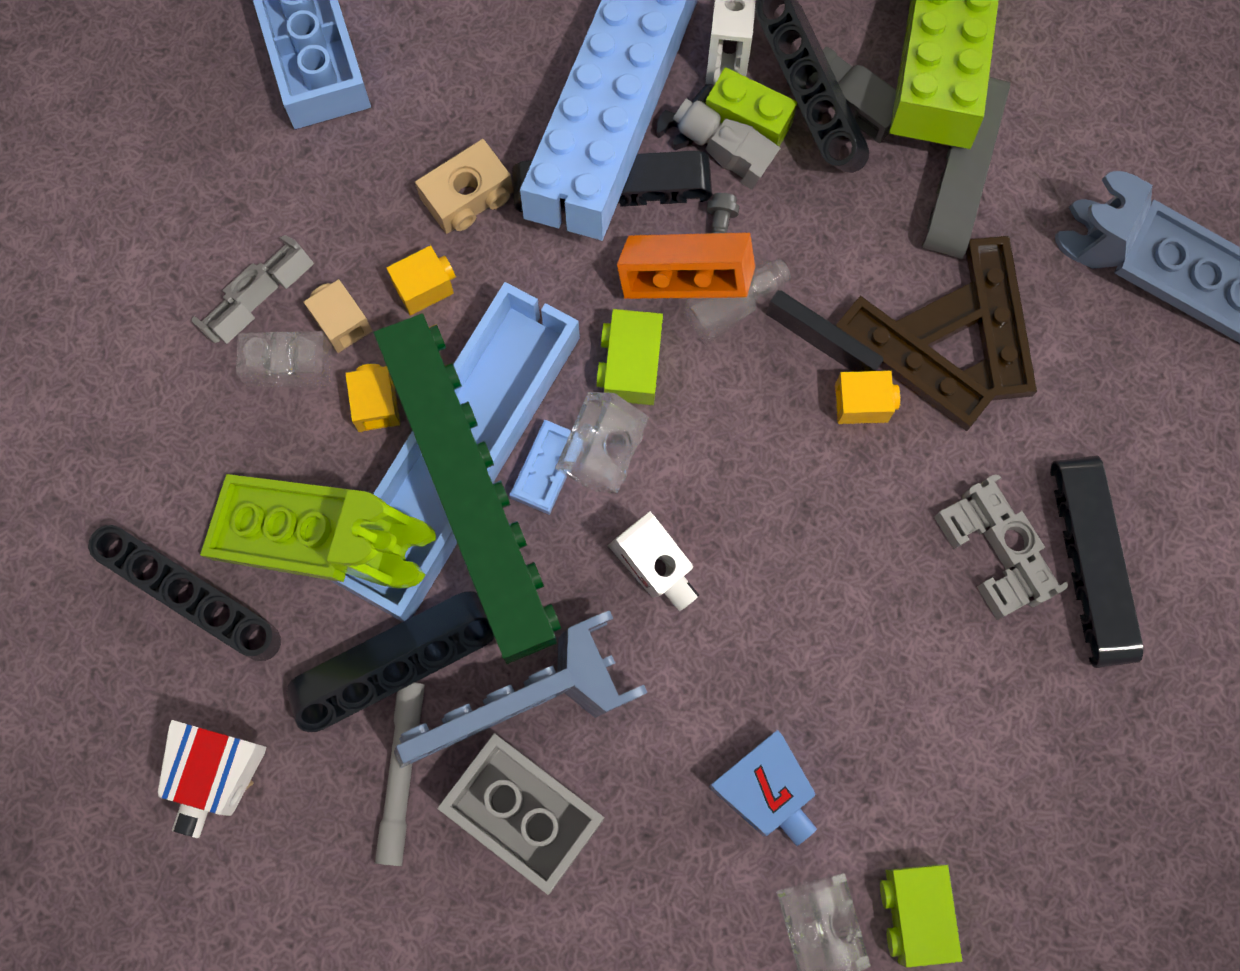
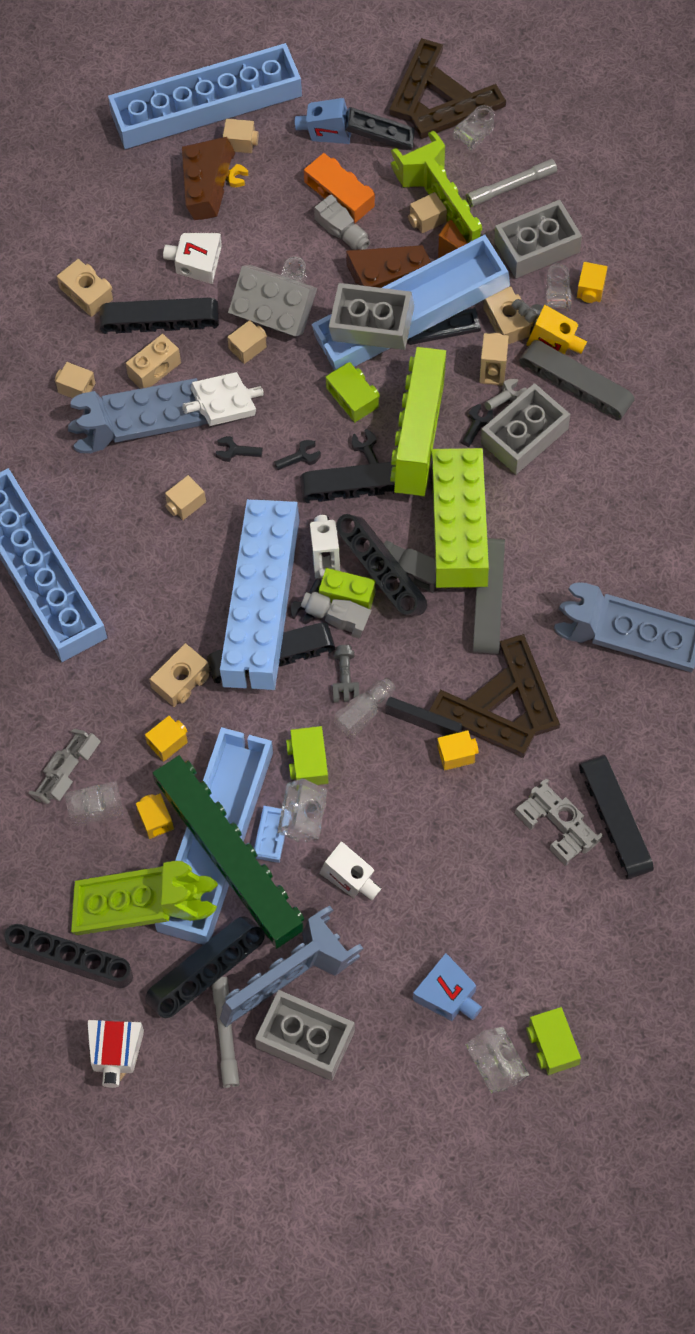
camera: 10 degrees left, 10 degrees down
(337, 315) = (120, 768): tan brick -> none
(687, 266) = (329, 694): orange brick -> none

